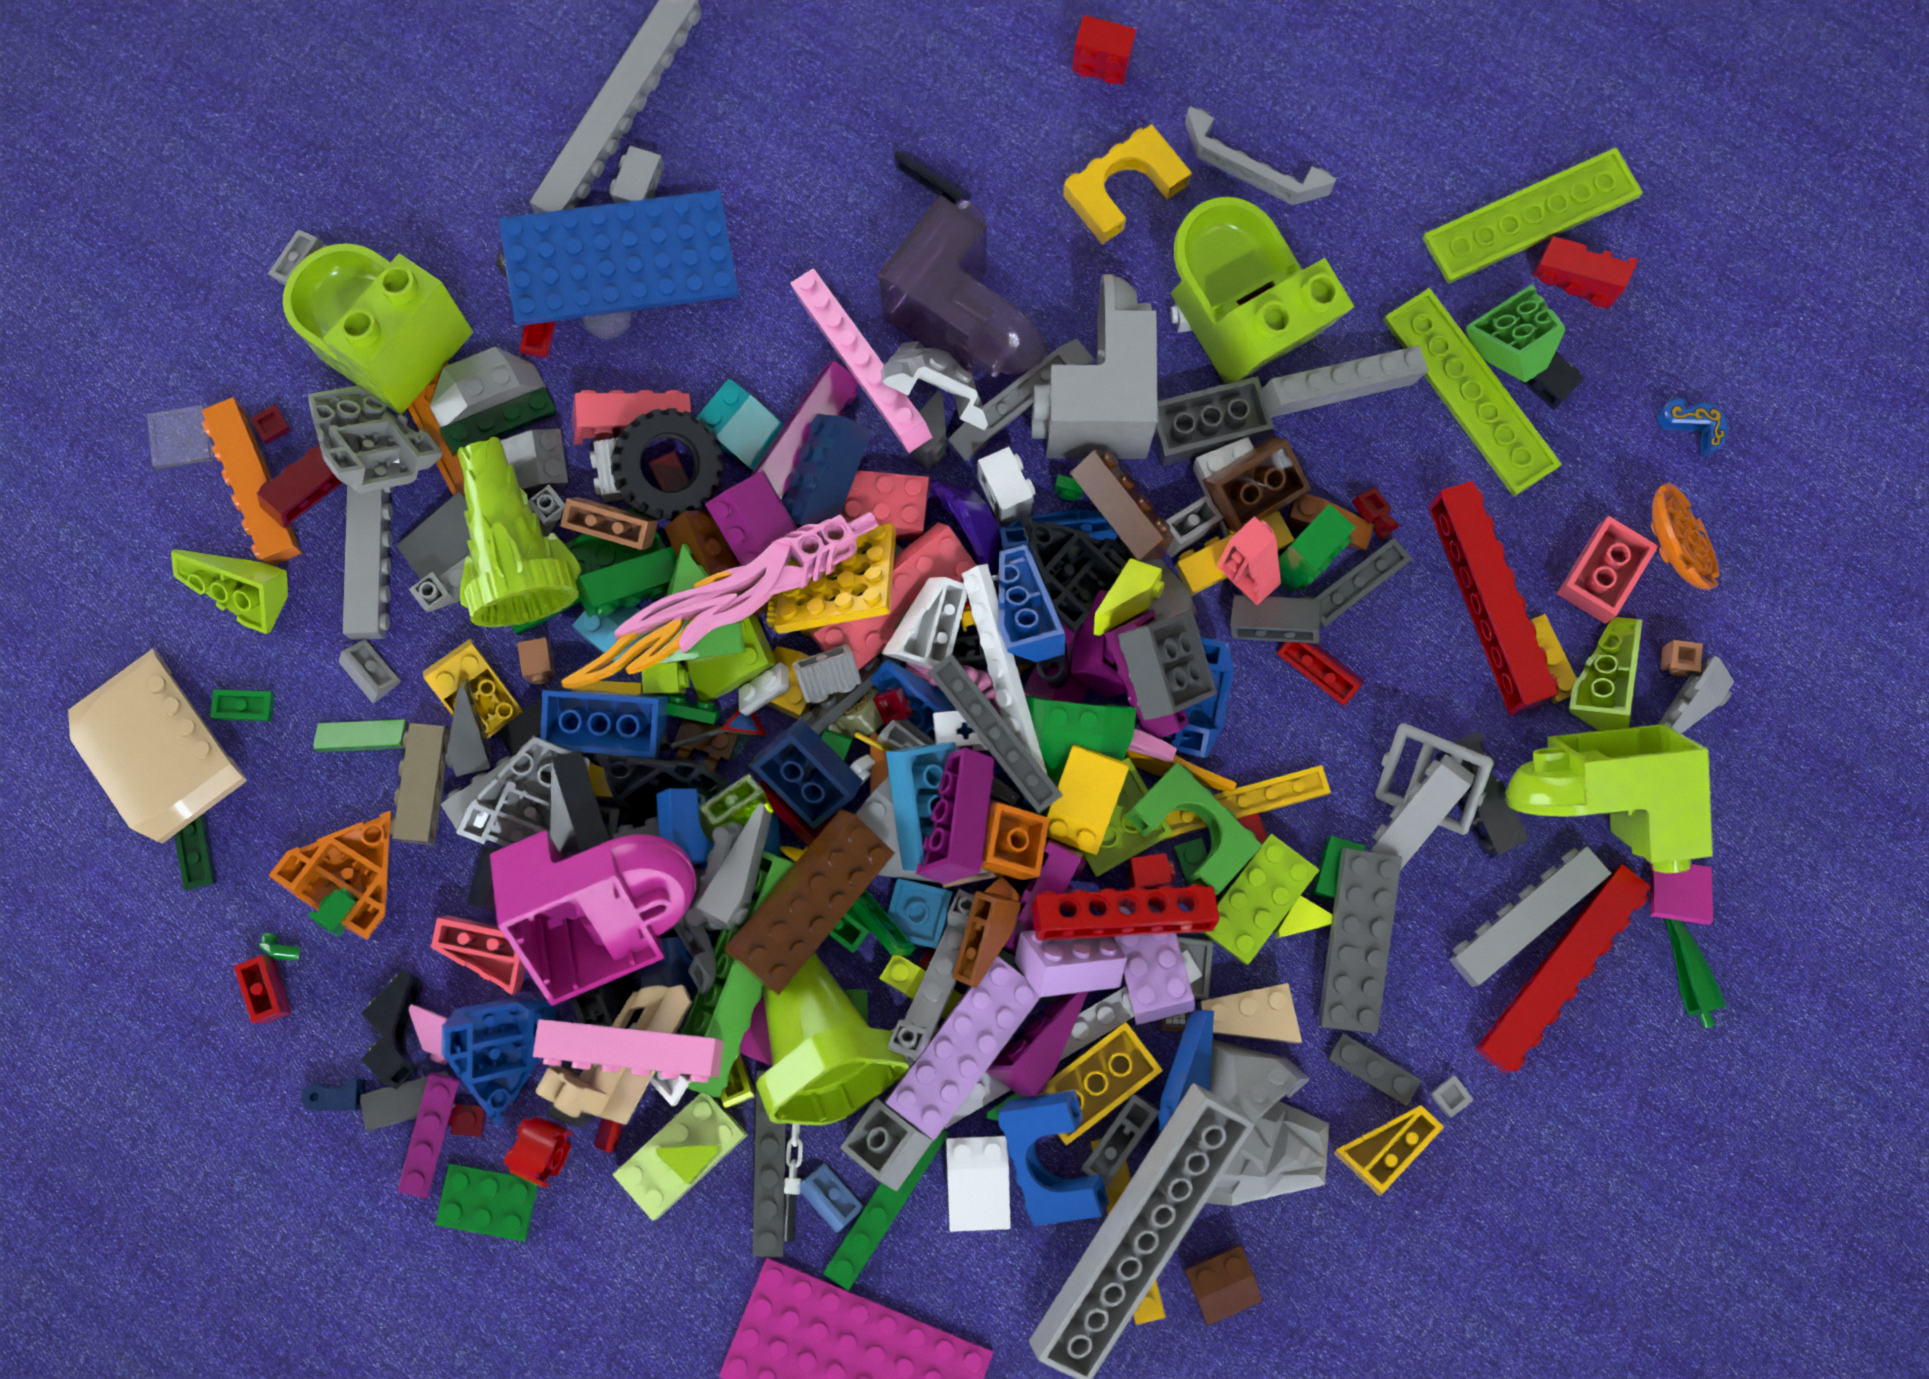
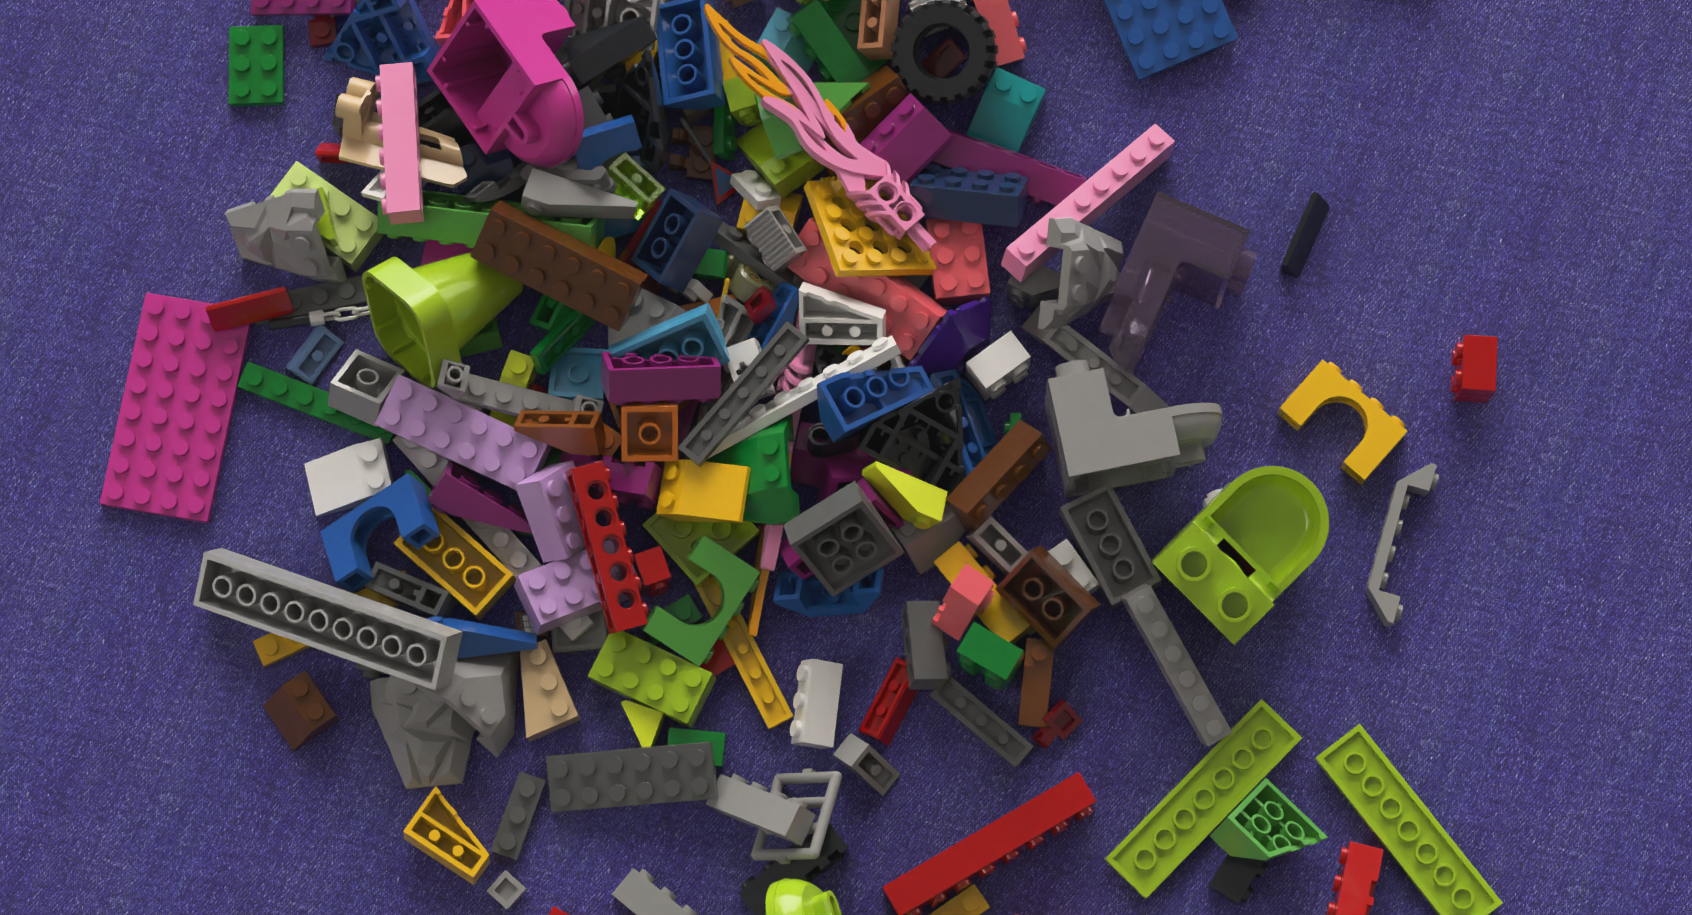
camera: 85 degrees right, 0 degrees up
(538, 1151) = (305, 95): red brick -> none
(696, 1201) = (285, 235): none -> light grey wedge
(739, 1085) = (402, 248): neon yellow slope -> none
(768, 1259) = (250, 309): none -> red slope
(1315, 738) = (816, 703): none -> white brick
(1382, 703) = (866, 764): none -> light grey slope

